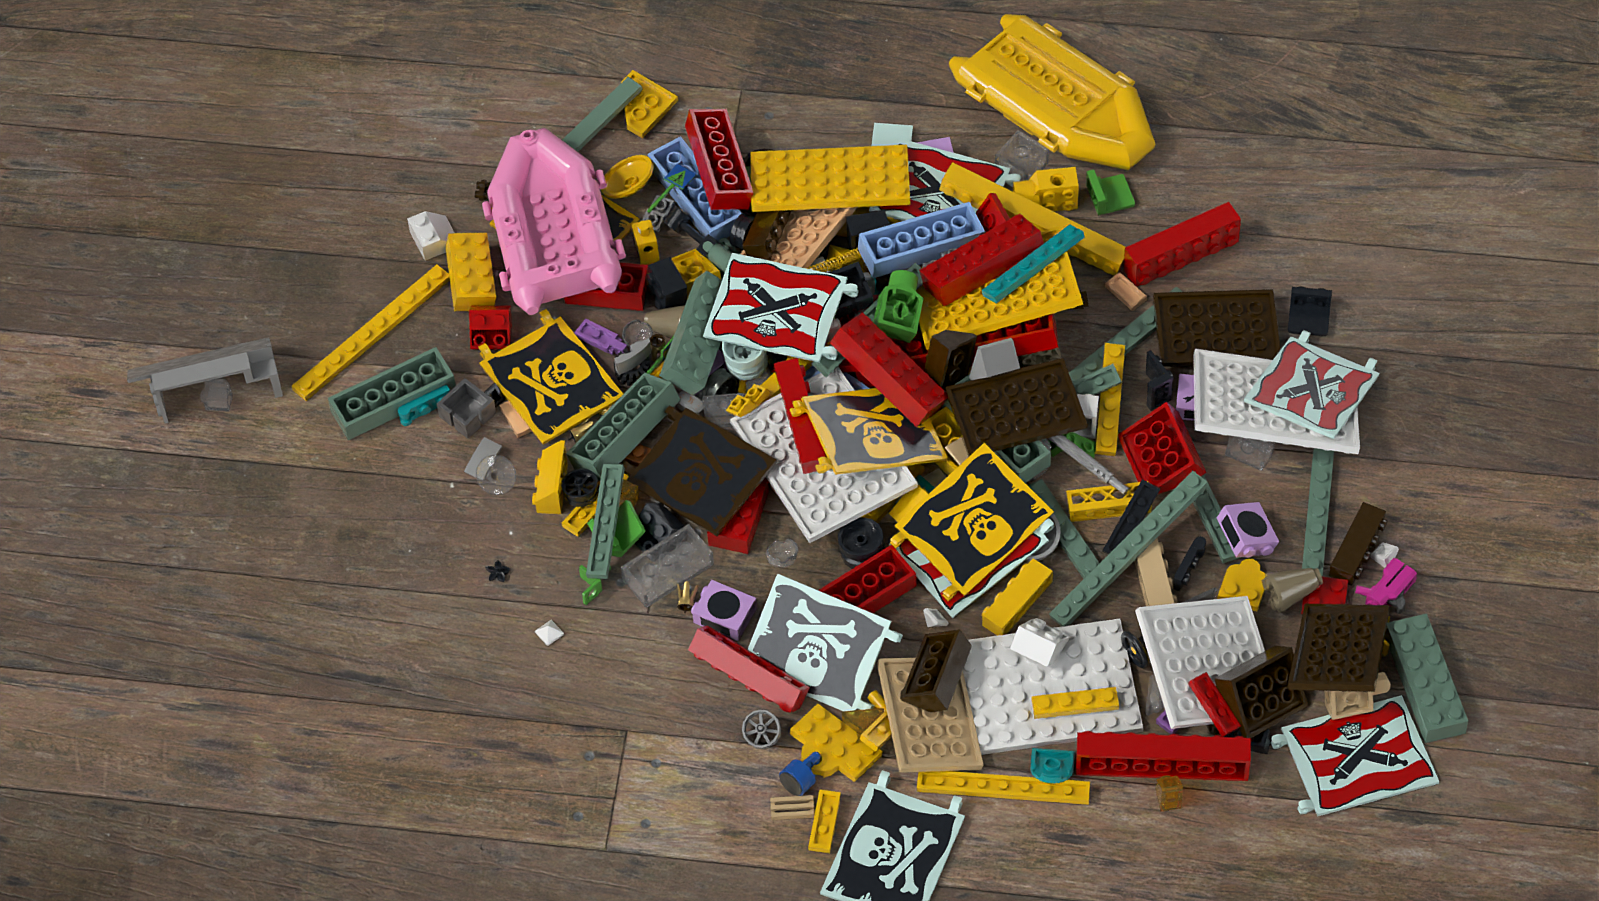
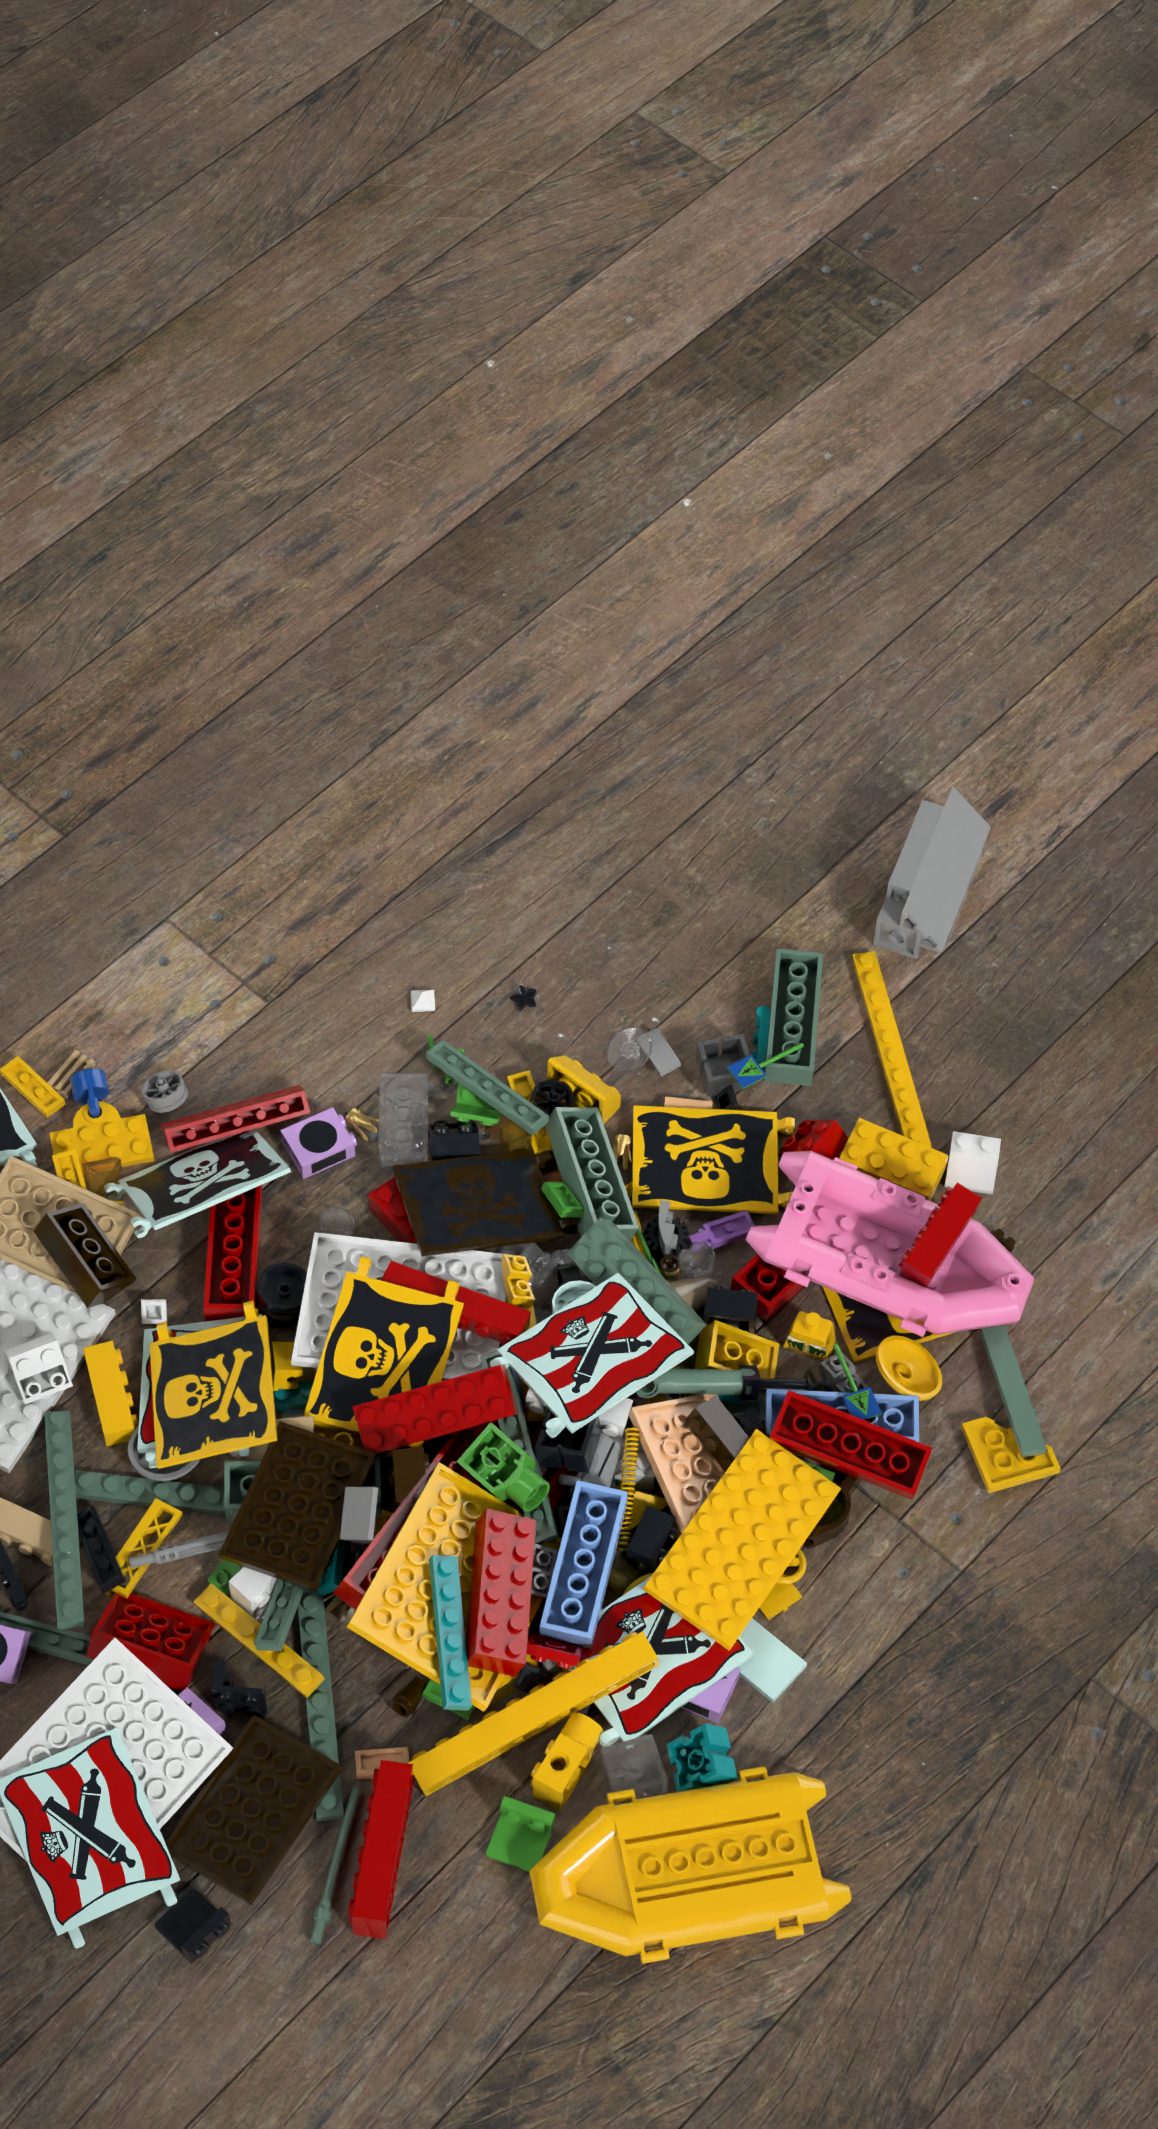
camera: 120 degrees right, 0 degrees up
(467, 379) = (749, 1071): none -> piece
(529, 183) = (942, 1232): none -> red brick
(659, 424) = (562, 1199): none -> bright green plate
(988, 126) = (702, 1758): none -> teal brick
(1242, 259) = (323, 1913): none -> sand green bar

